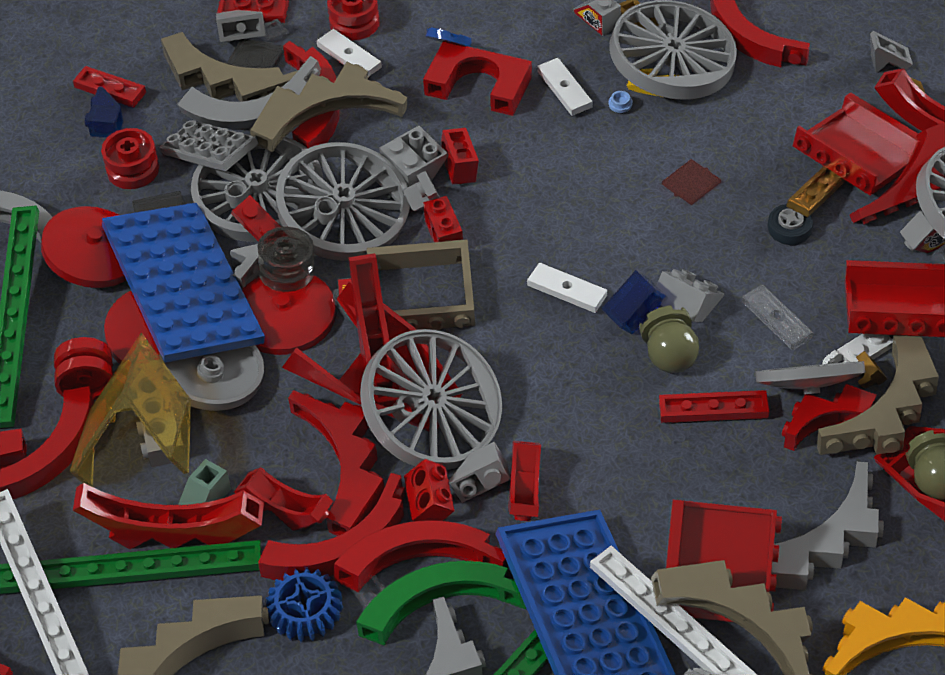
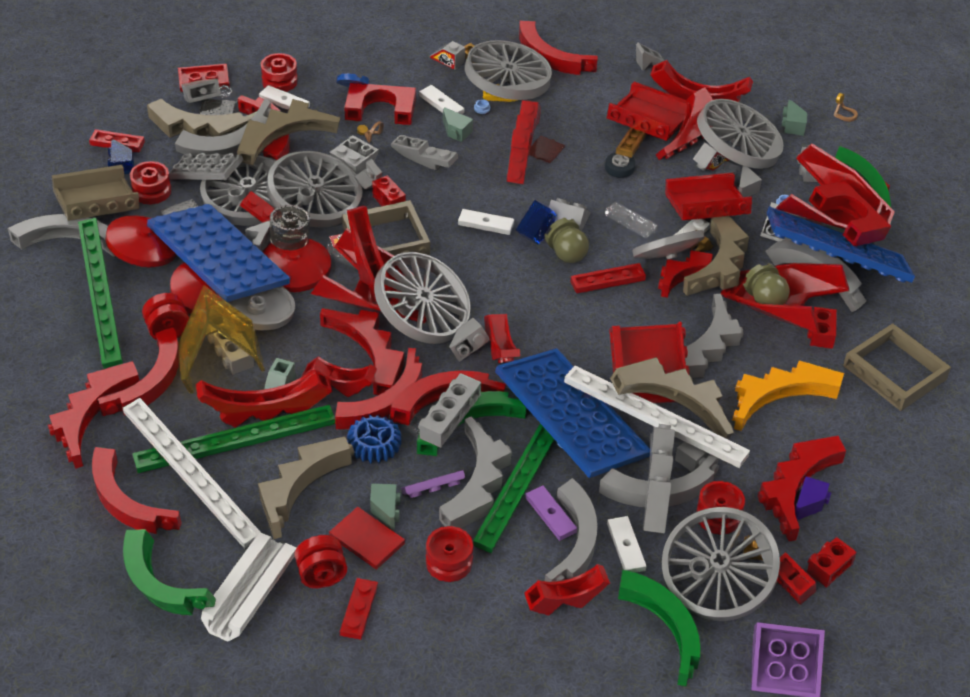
camera: 20 degrees left, 5 degrees down
(52, 164) = (94, 192): none -> dark tan panel
(388, 616) = (449, 410): none -> light grey brick
(429, 492) = (437, 355): red brick -> none
(443, 115) = (363, 130): none -> medium nougat piece
(462, 158) = (389, 152): red brick -> none
(512, 165) = (420, 152): none -> light grey slope
(575, 127) = (457, 125): none -> sand green slope
(650, 169) = (522, 140): none -> red arch

